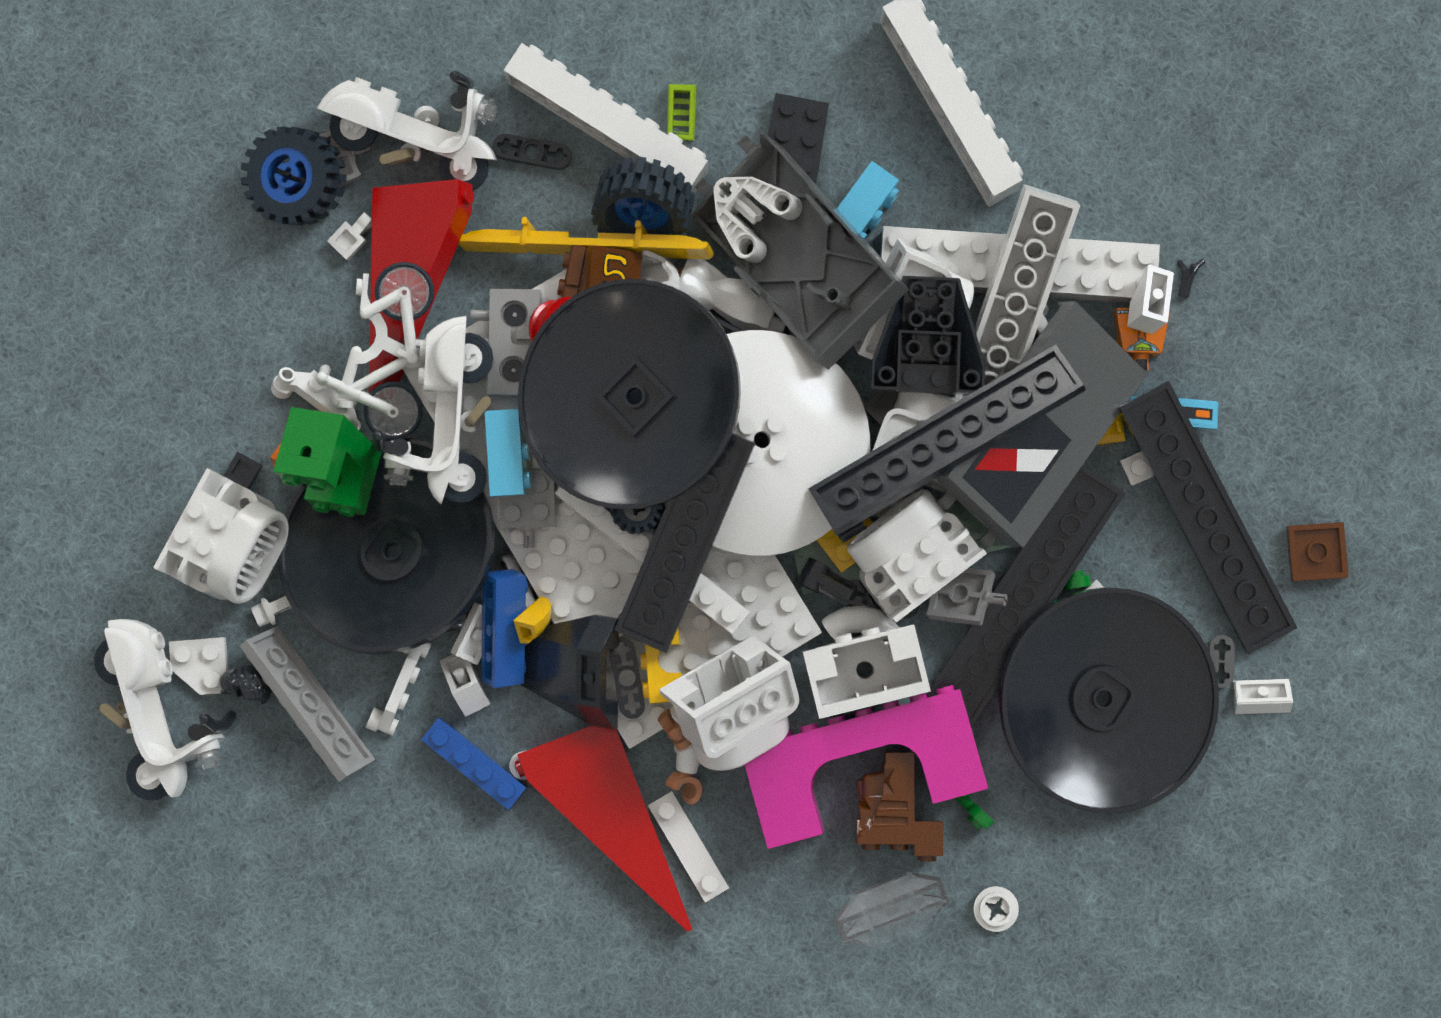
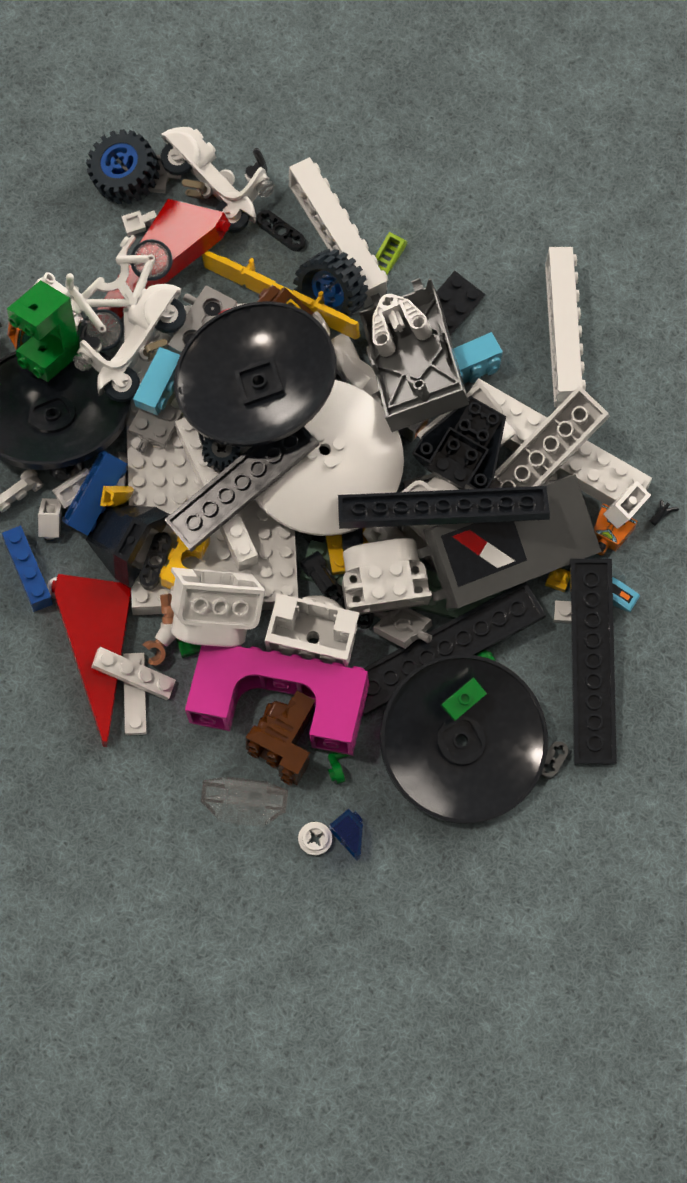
camera: 20 degrees right, 15 degrees down
(676, 828) = (133, 673): none -> white plate
(1032, 881) = (348, 831): none -> clear blue slope
(1088, 657) = (463, 699): none -> green plate
(1262, 696) = (569, 797): white slope -> none
(1317, 551) = (656, 723): reddish brown plate -> none

